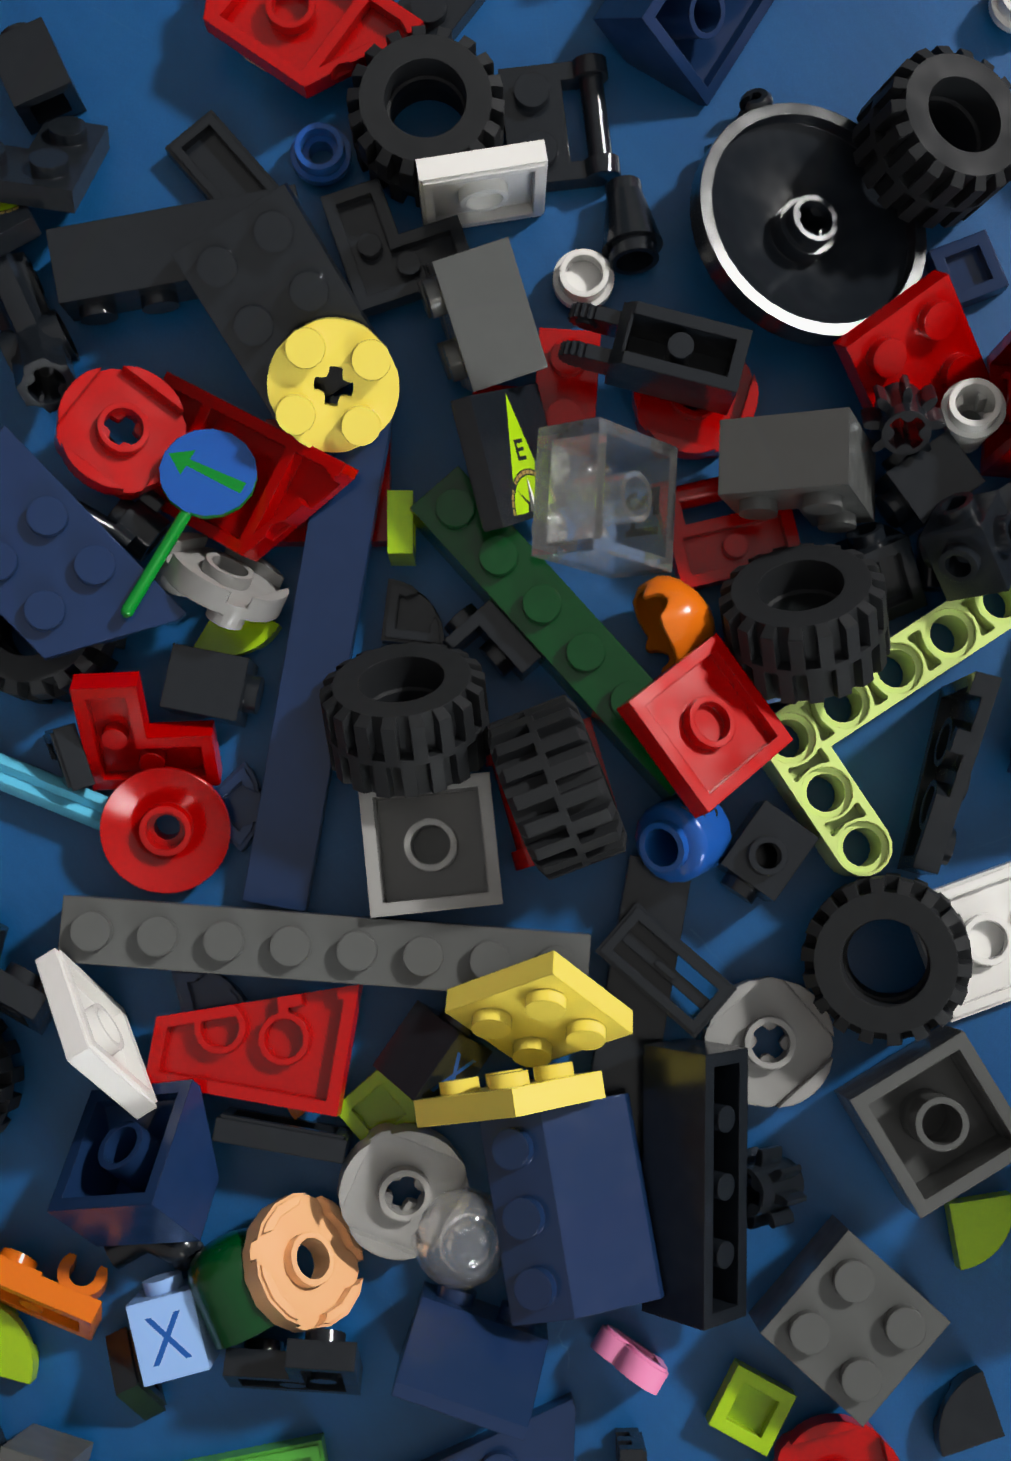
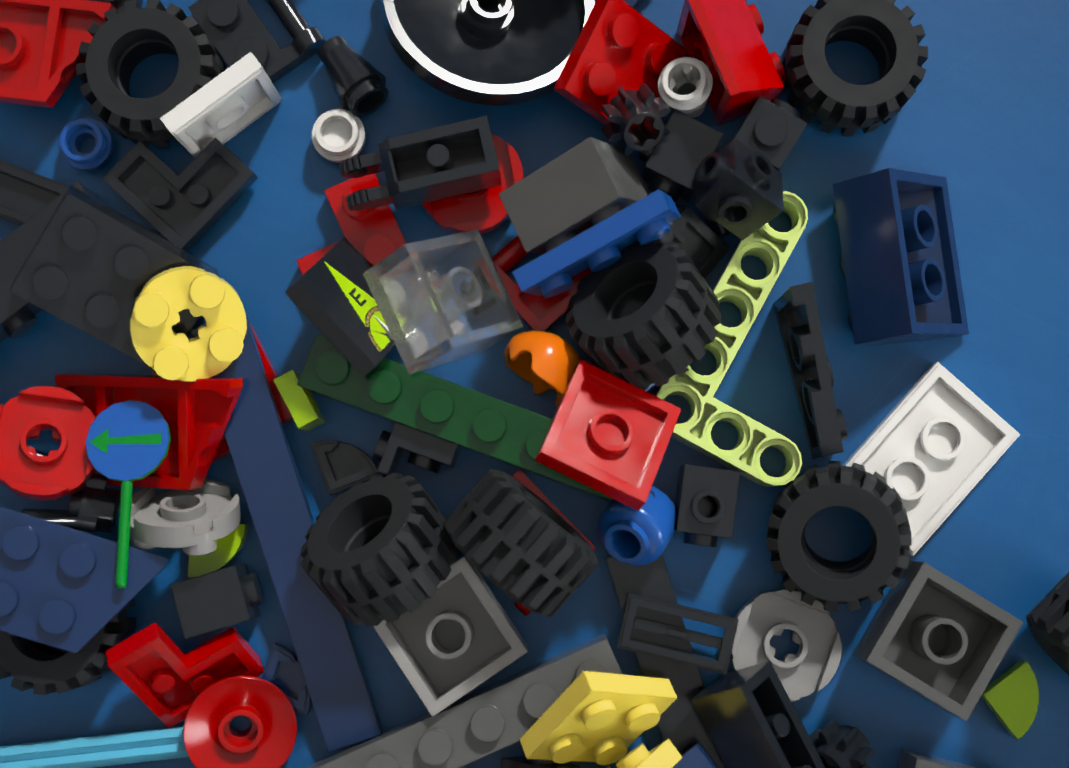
camera: 20 degrees left, 0 degrees up
(67, 748) = (131, 708): black tile -> none
(482, 316) = (277, 208): dark grey brick -> none
(796, 526) = (598, 245): none -> blue plate

